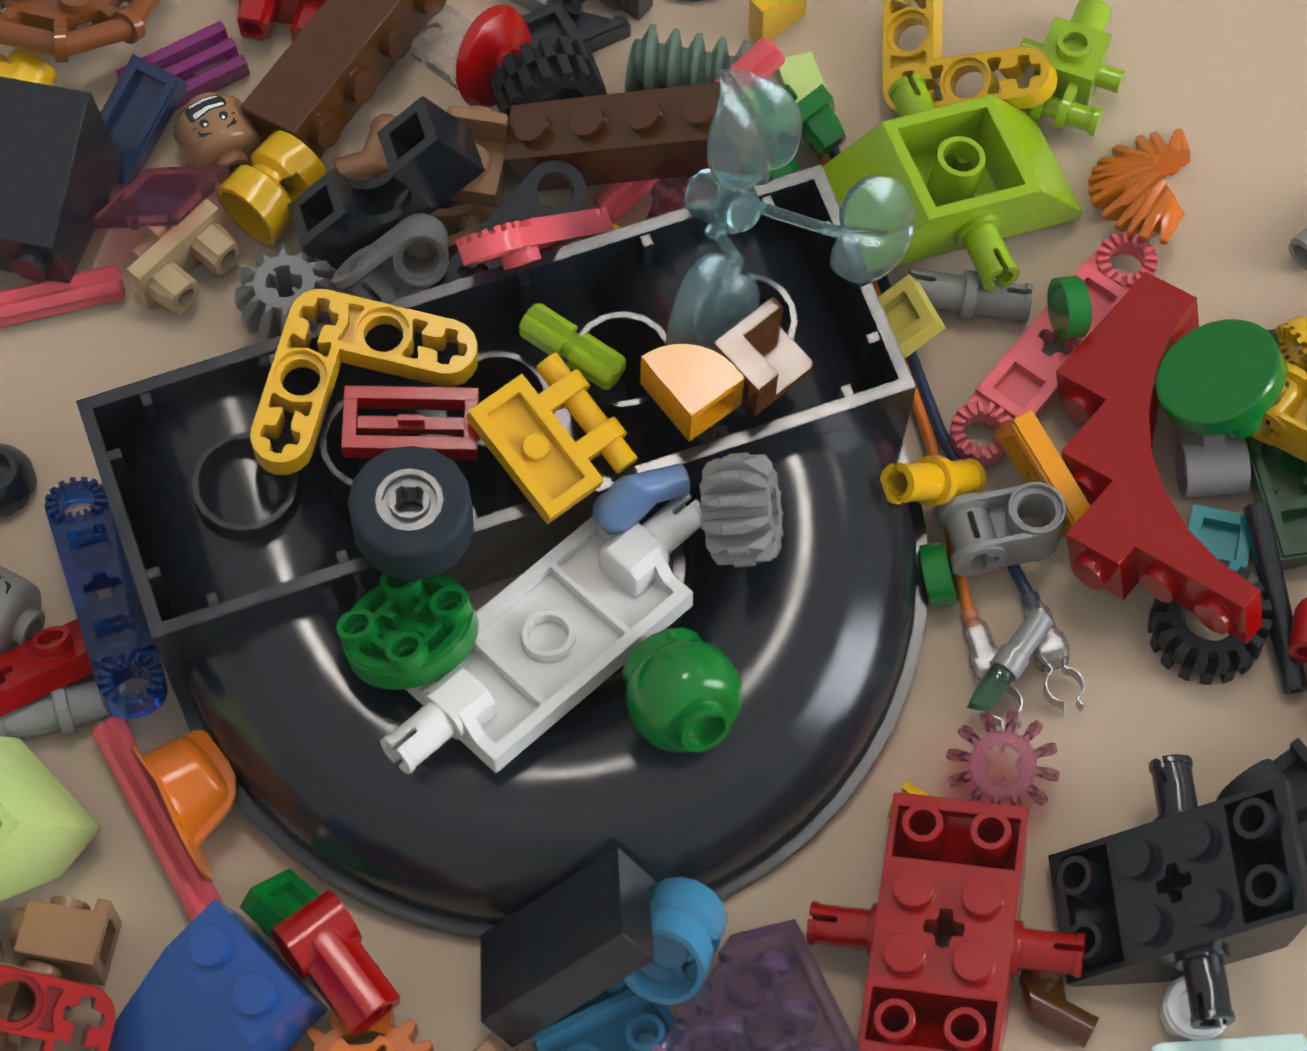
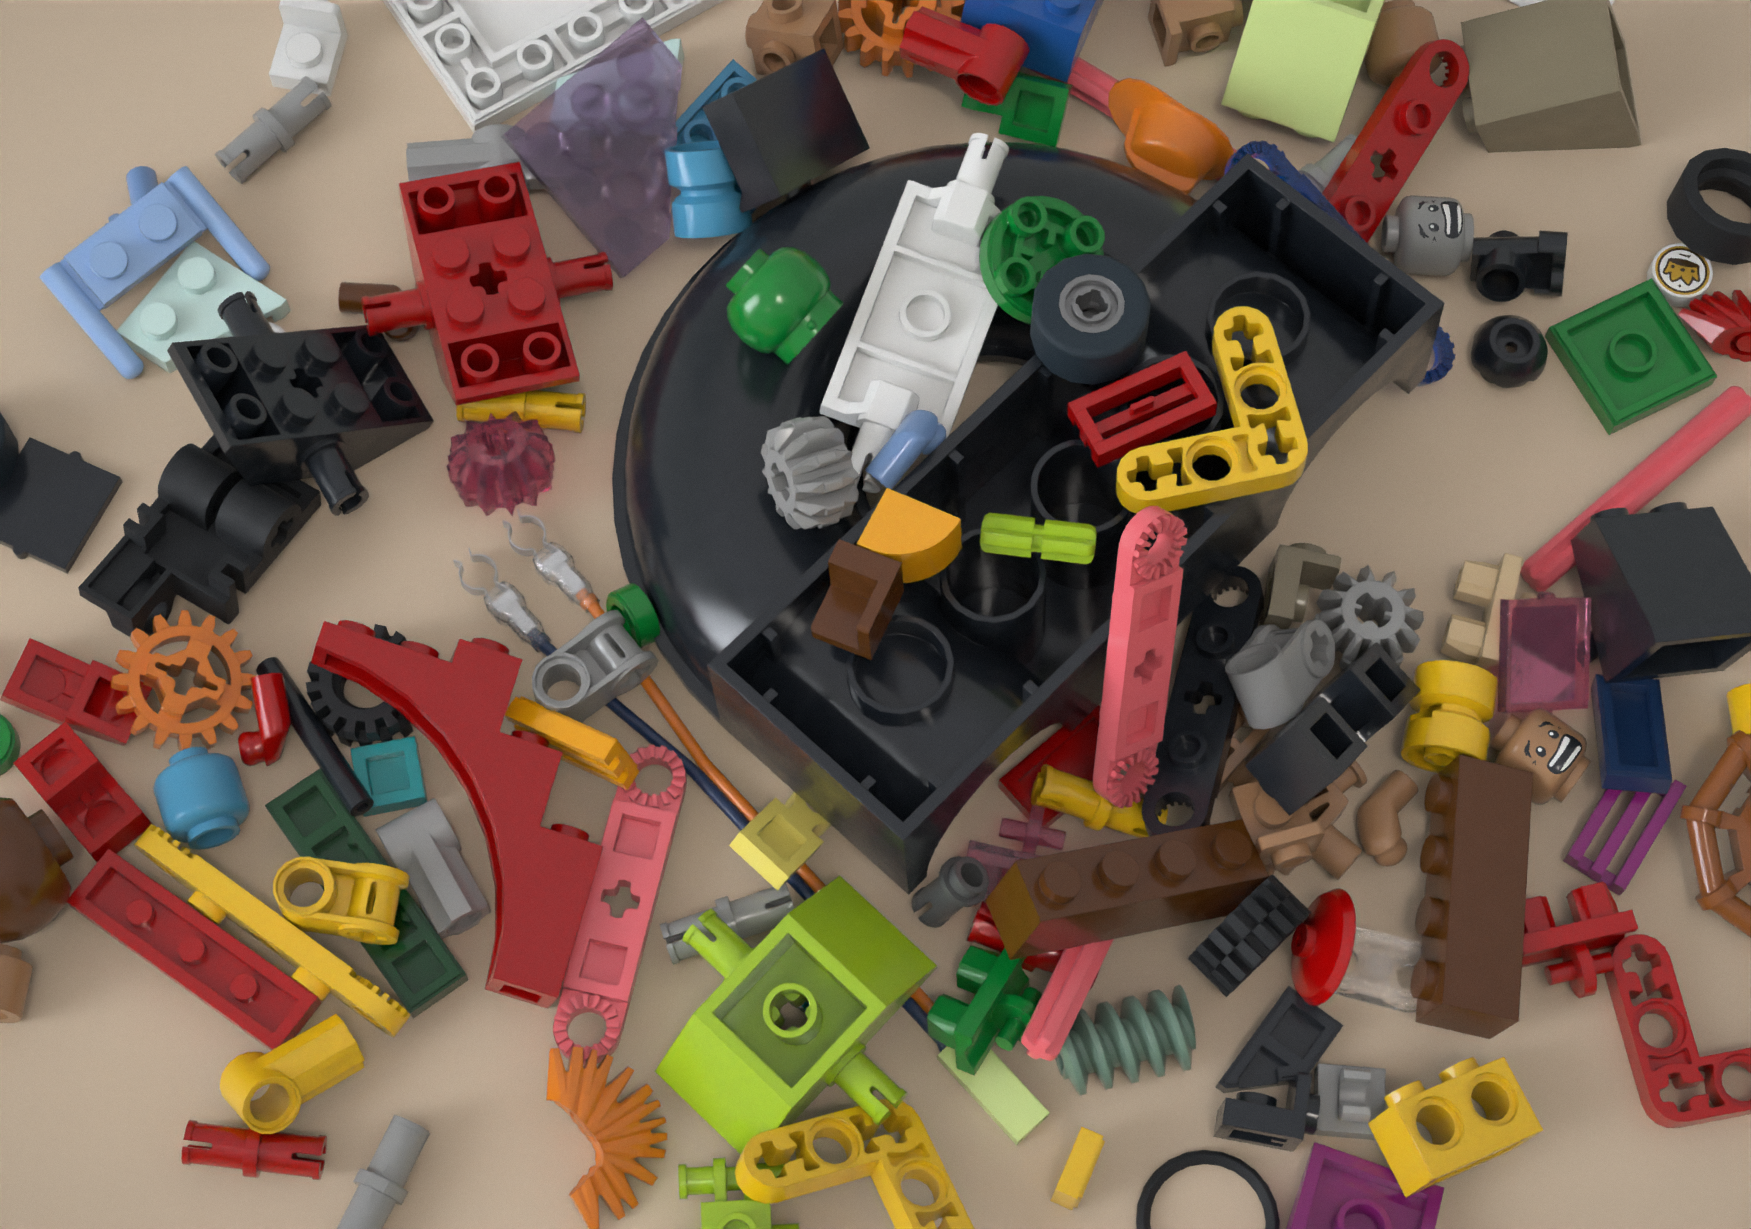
camera: 150 degrees right, 5 degrees up
(536, 447) = (1013, 421): yellow plate -> none
(756, 132) = (945, 700): clear light blue plant -> none
(932, 480) = (669, 667): yellow pin -> none
(1010, 660) = (532, 557): light grey piece -> none
(1069, 307) = (616, 917): green tile -> none
(1221, 378) = (433, 880): green tile -> none

